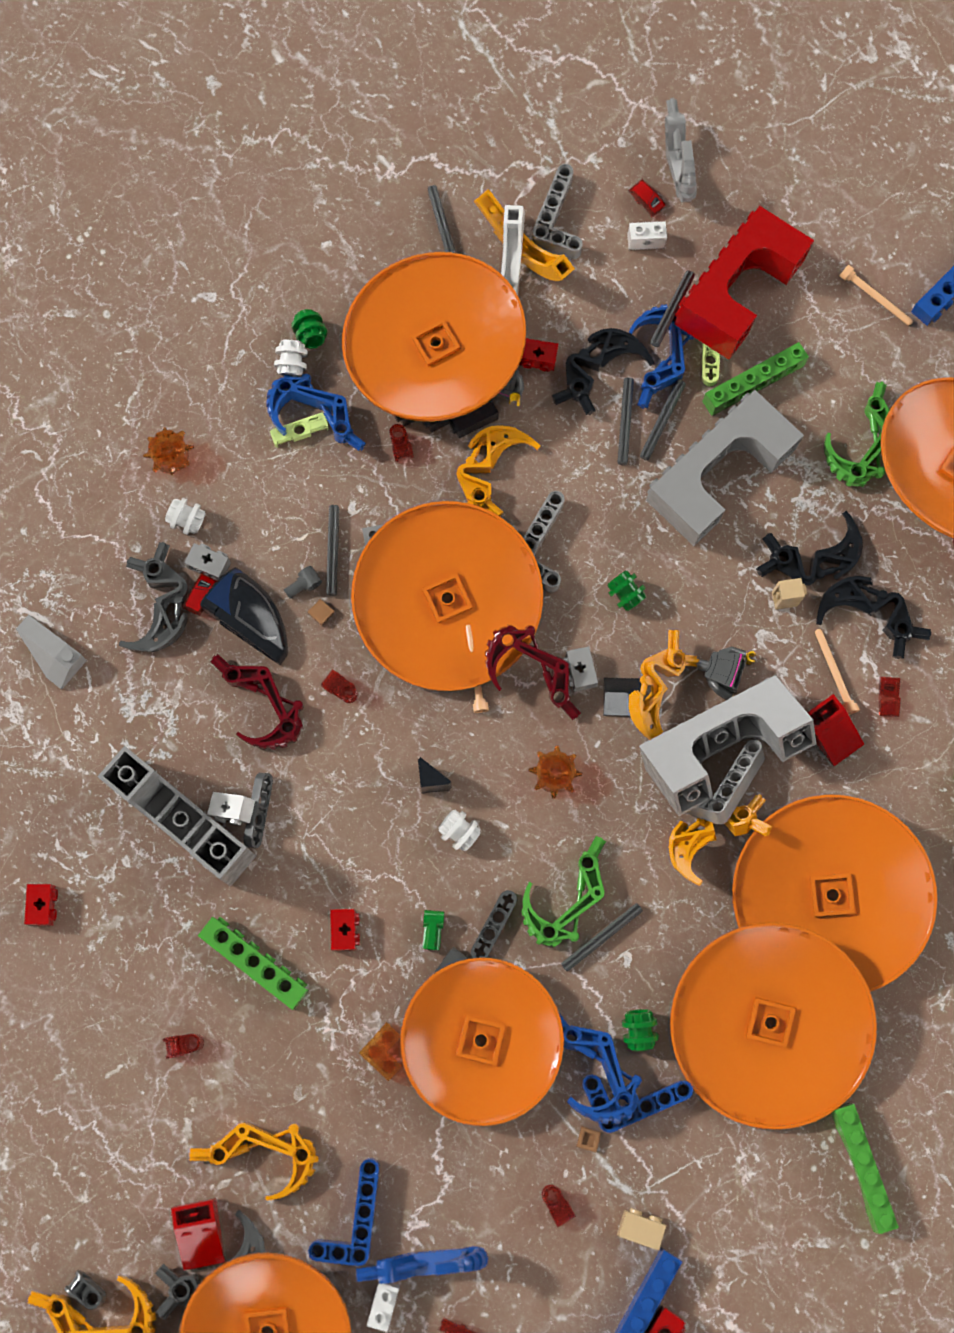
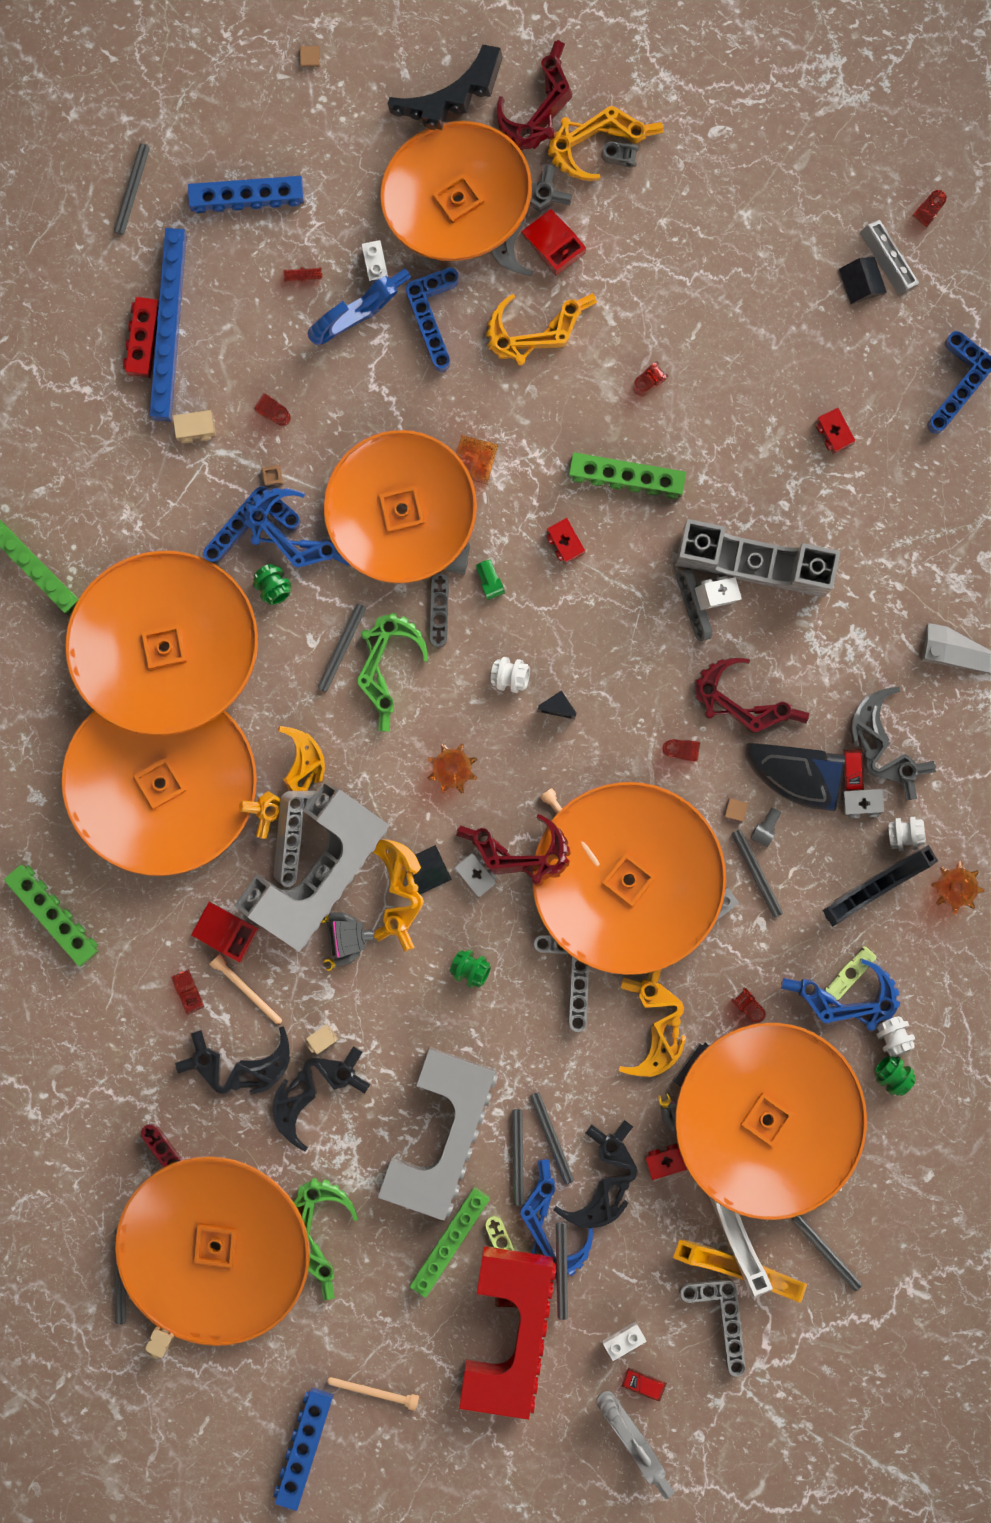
camera: 155 degrees right, 10 degrees up
(235, 486) = (879, 885): none -> black arch

